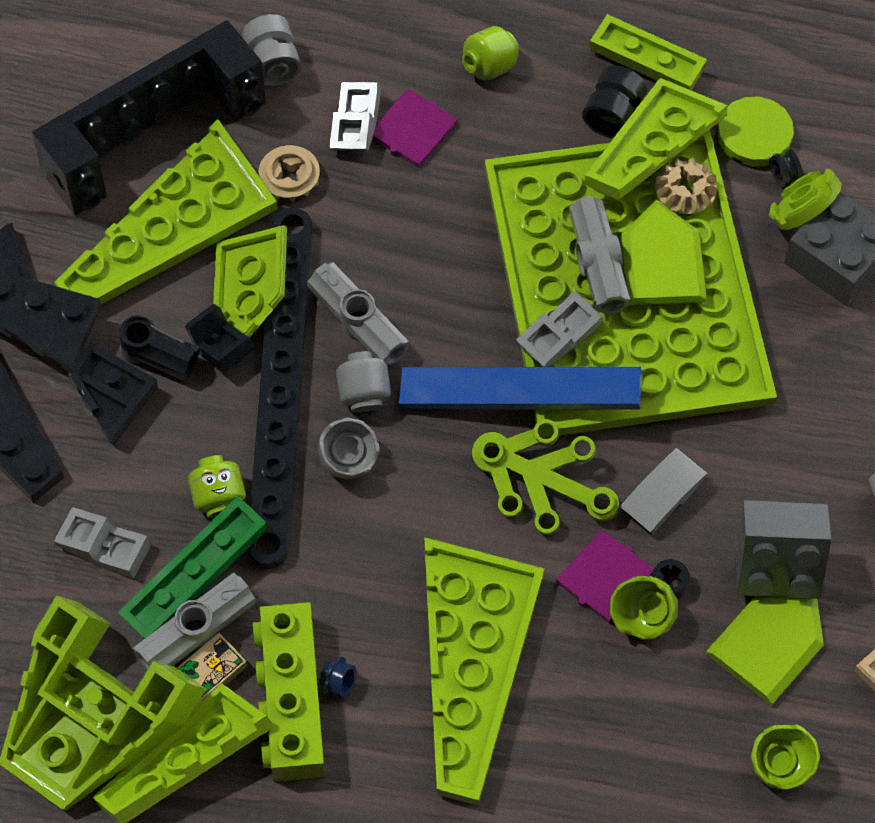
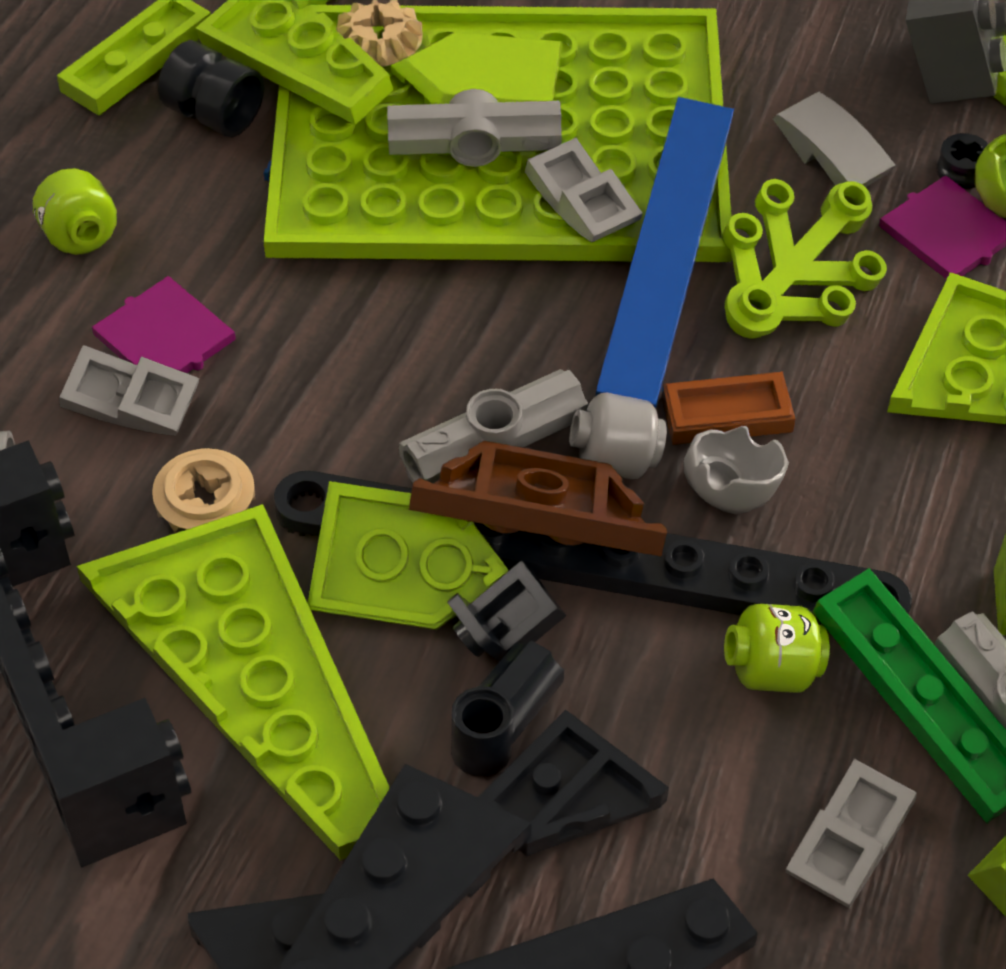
camera: 80 degrees left, 10 degrees down
(291, 337) = (542, 495): none -> reddish brown wing
(410, 449) = (726, 404): none -> dark orange tile

